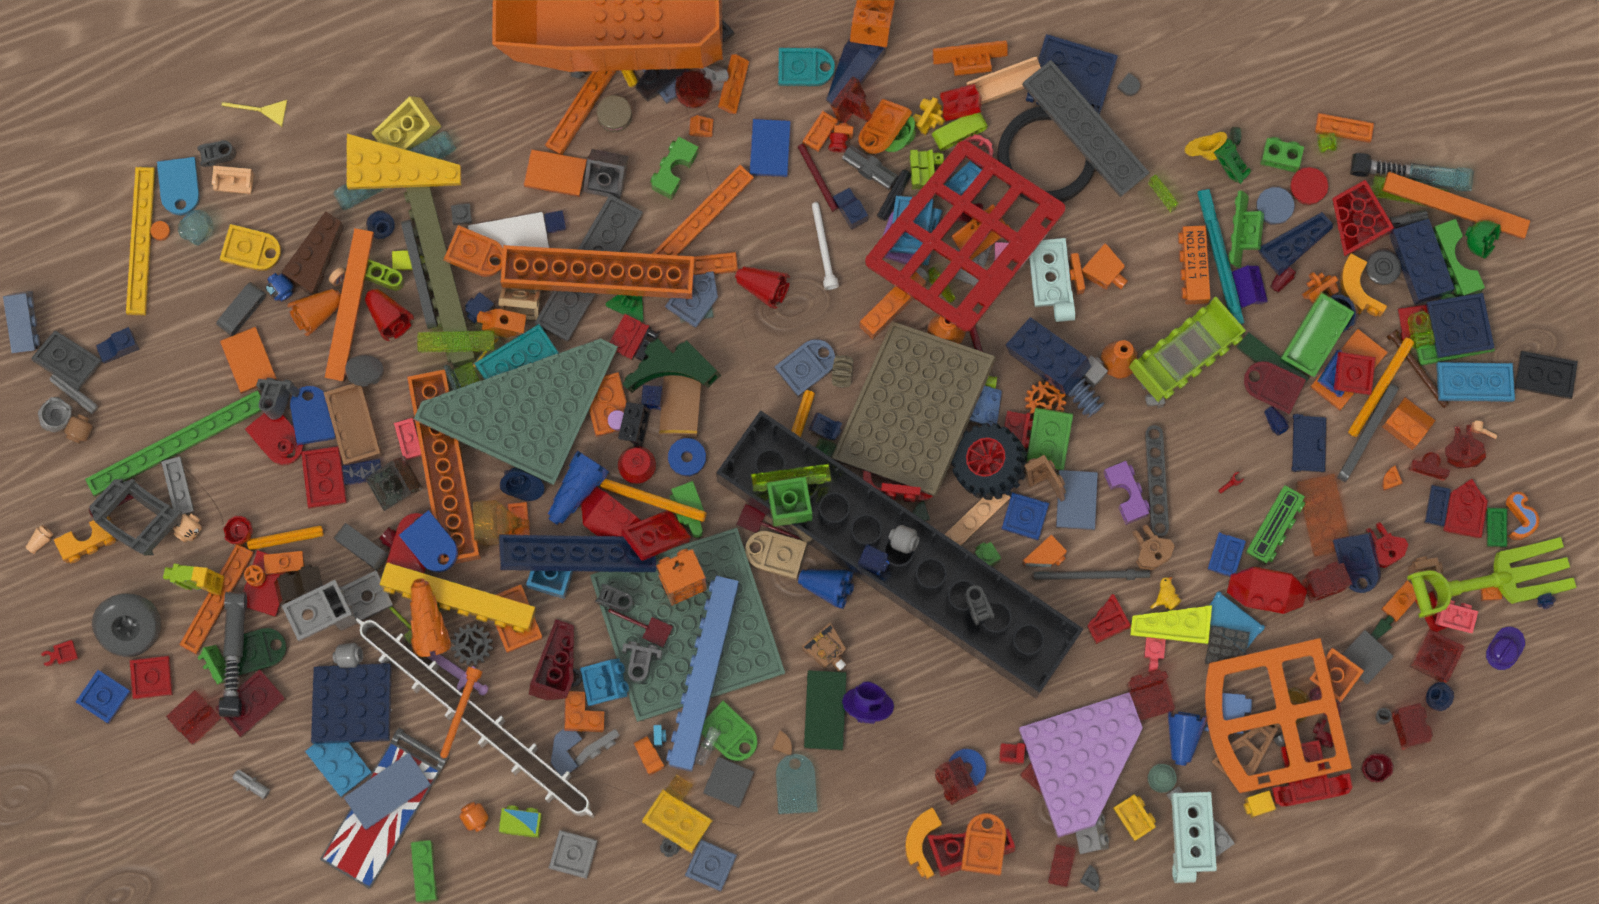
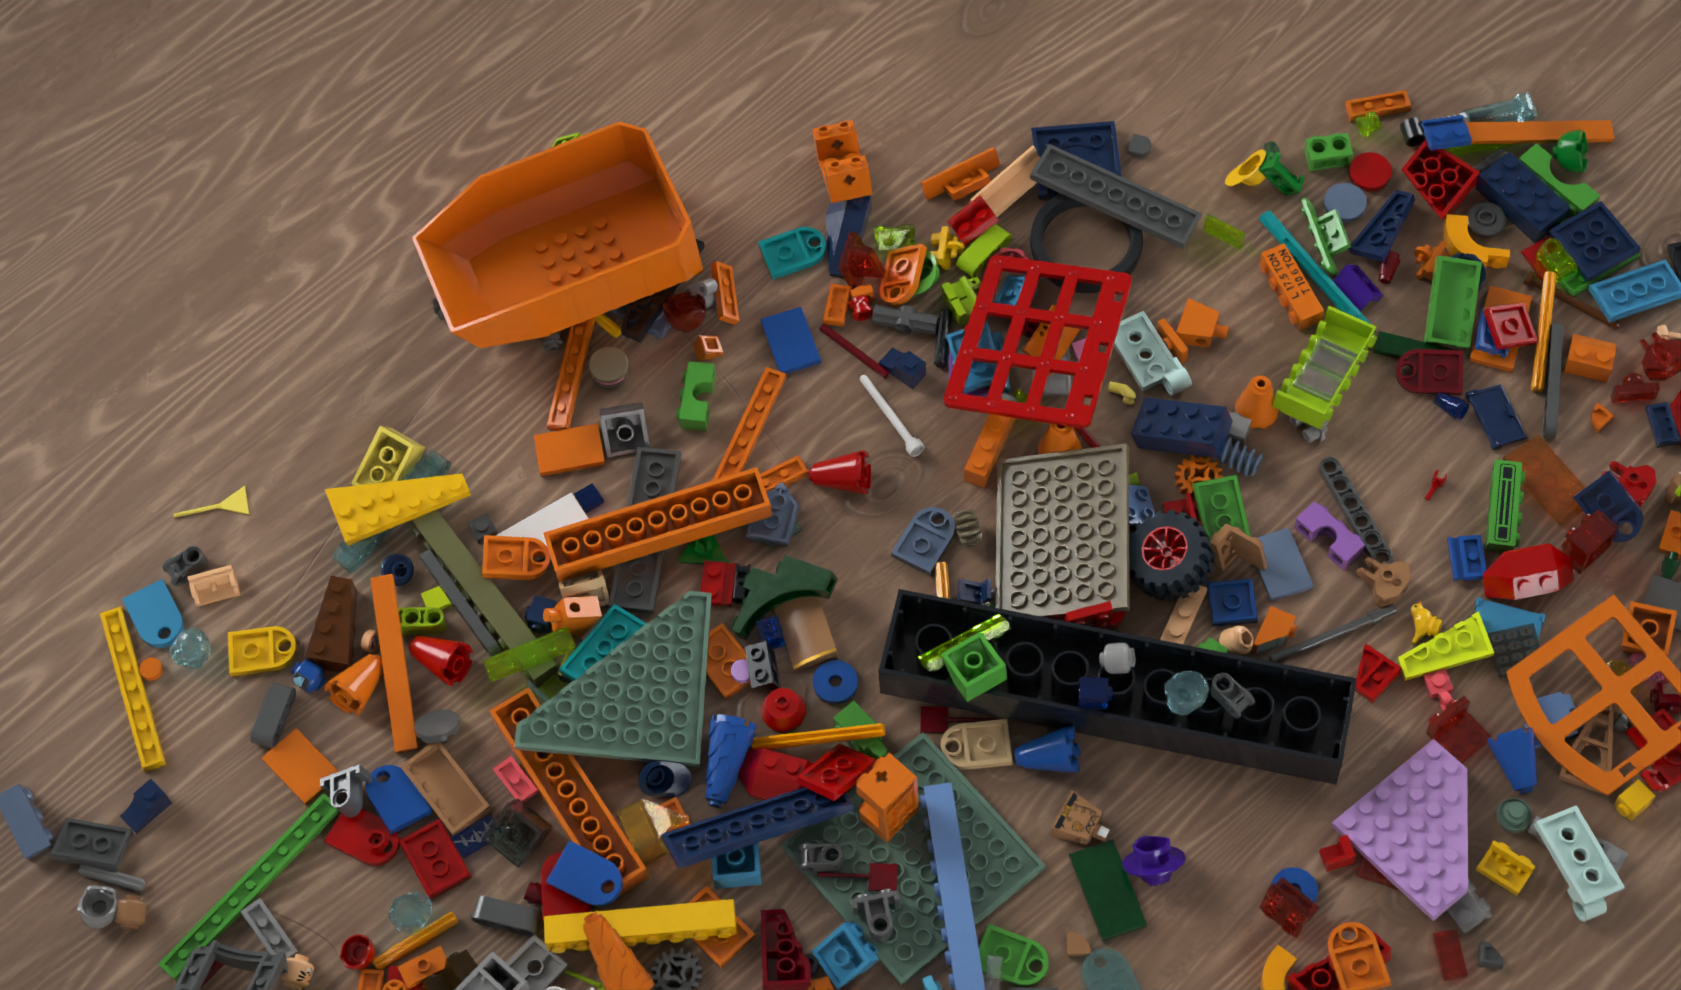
camera: 15 degrees left, 15 degrees down
(289, 515) = (410, 912): none -> clear light blue hair
(891, 90) = (894, 237): none -> clear neon green leg
(943, 589) = (1186, 692): none -> clear light blue hair
(1012, 552) = (1237, 640): none -> light nougat head
(1021, 305) = (1124, 390): none -> light yellow arm
(1383, 182) = (1446, 132): none -> blue plate

